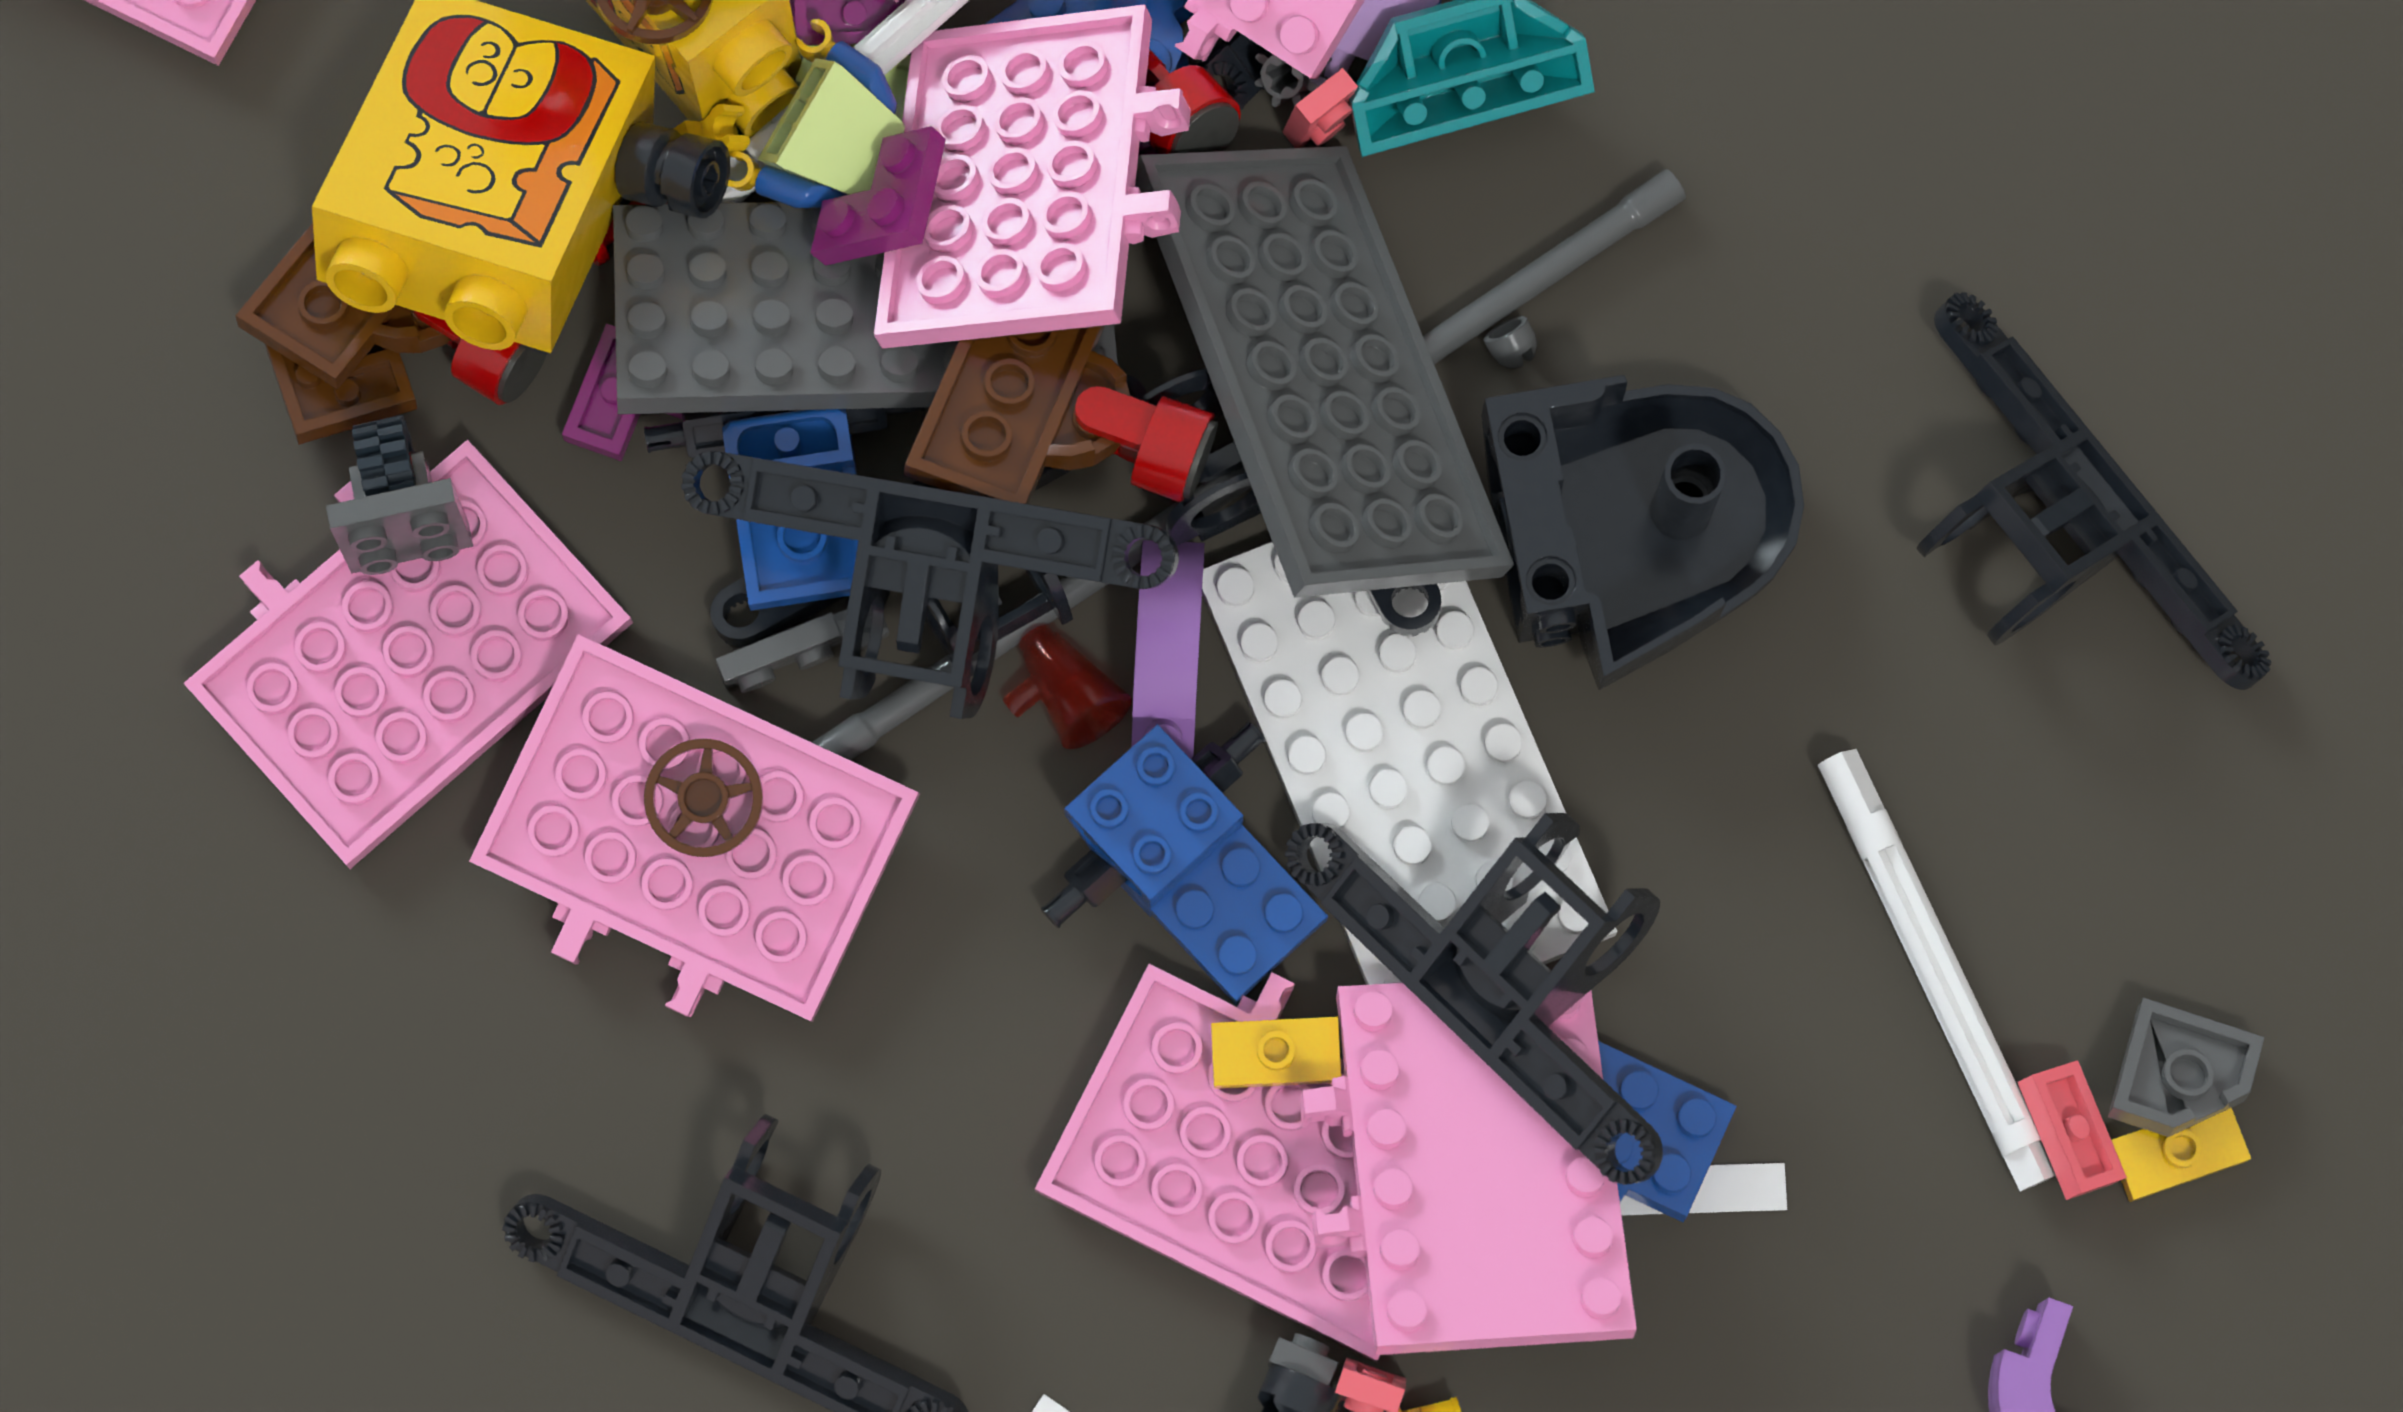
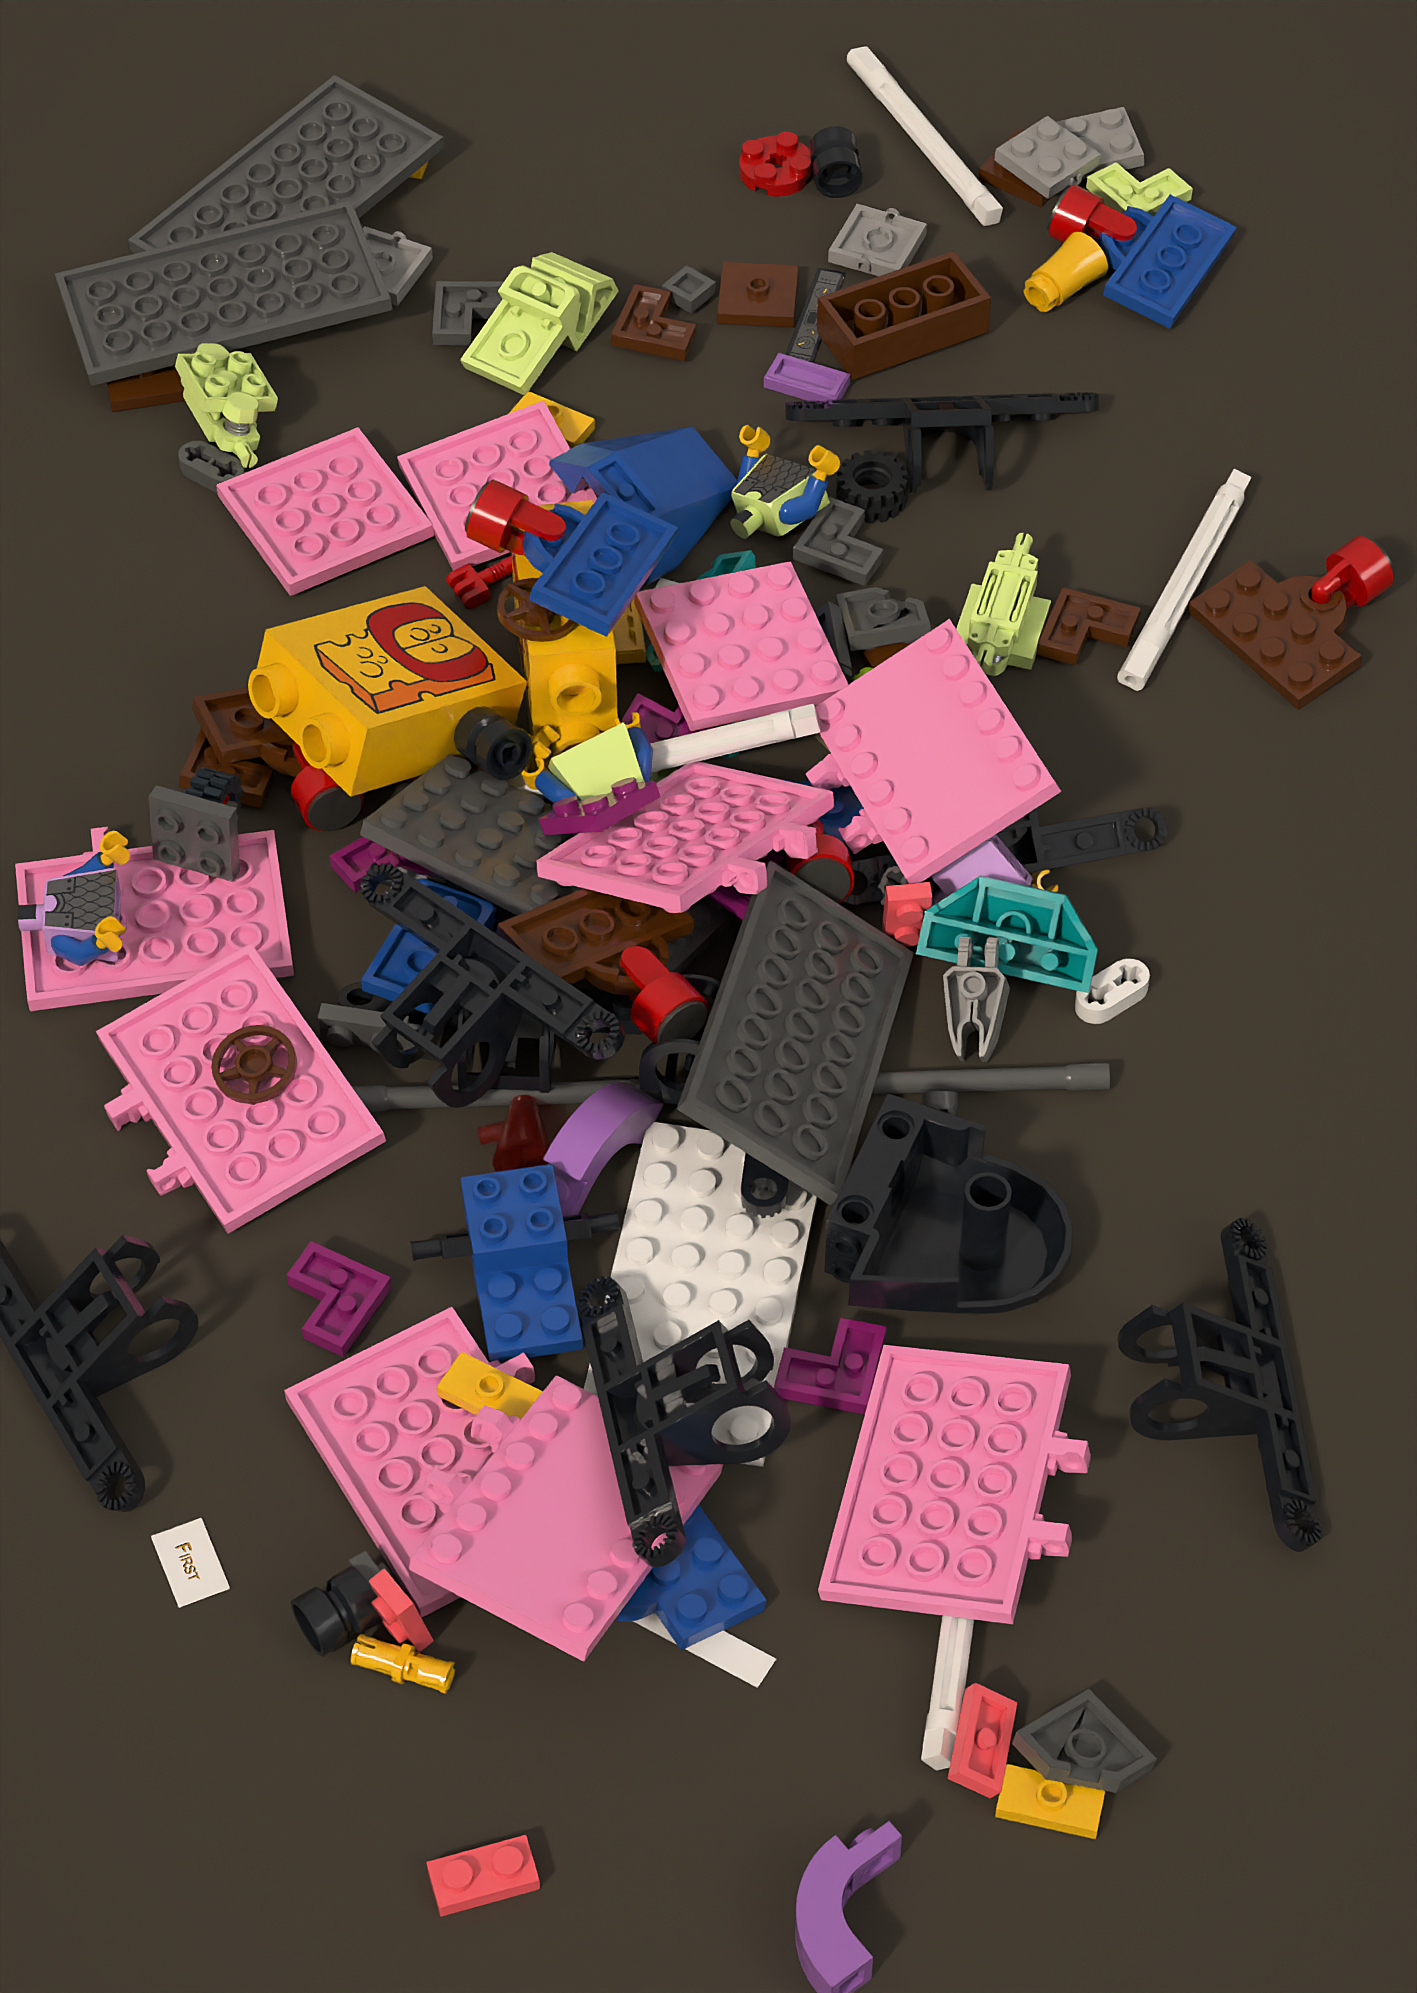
camera: 35 degrees right, 25 degrees down
(334, 711) = (83, 908): none -> torso
(1014, 1013) = (346, 1292): none -> magenta plate
(1473, 178) = (975, 999): none -> light grey hinge
(1618, 64) = (1116, 995): none -> white beam
(1640, 769) = (839, 1379): none -> magenta plate
(1848, 842) = (951, 1484): none -> bright pink hinge

